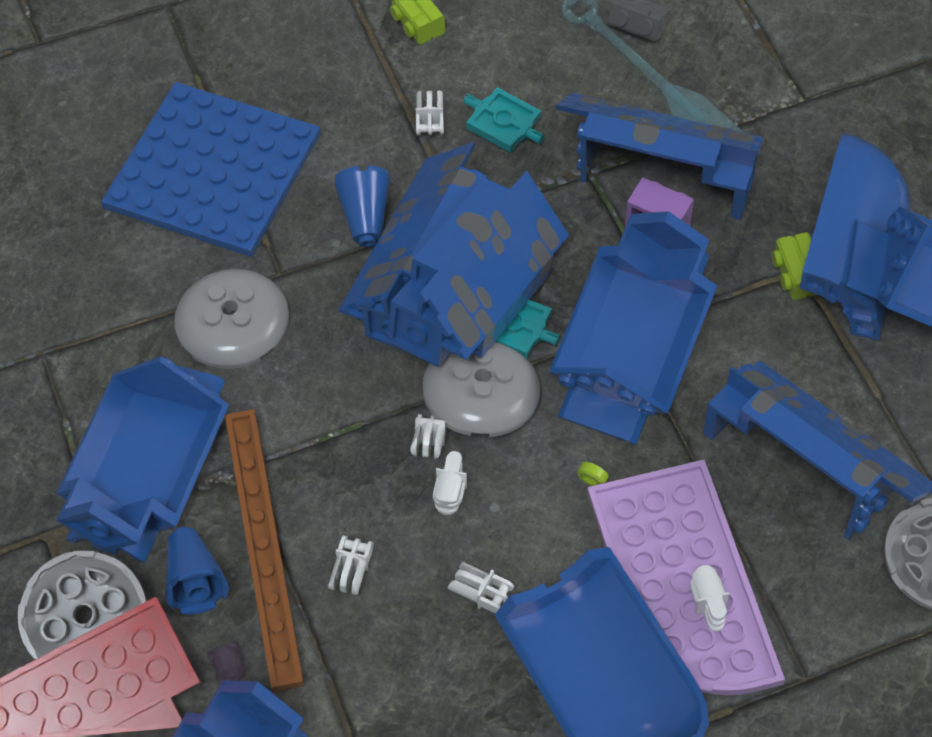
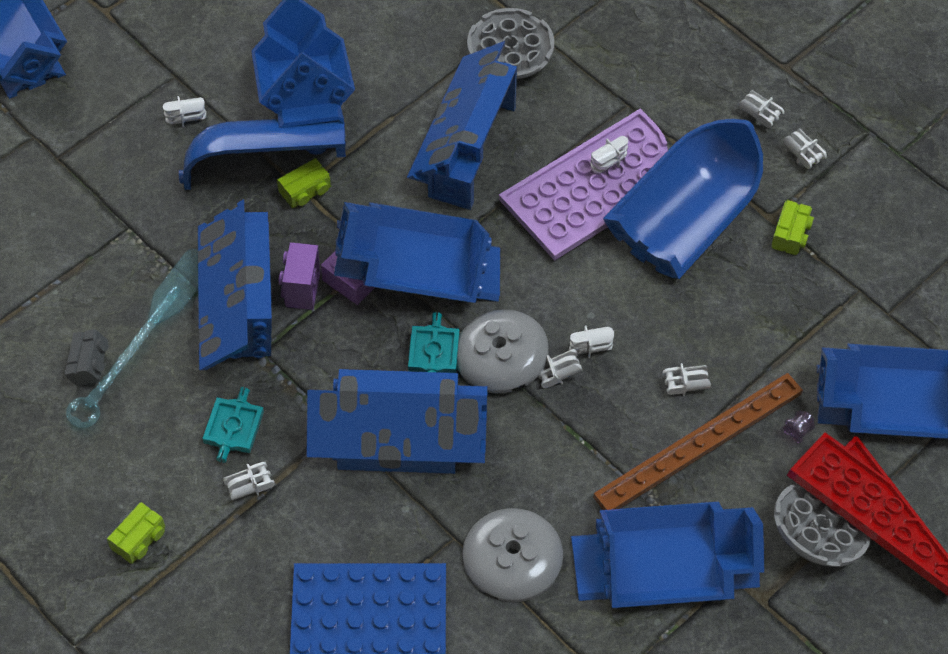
camera: 115 degrees left, 0 degrees up
(192, 574) = (746, 474): blue cone -> none
(363, 201) = (367, 489): blue cone -> none
(476, 272) = (470, 354): blue panel -> none
(477, 585) = (662, 289): white arm -> none
(592, 474) = (541, 258): lime tile -> none

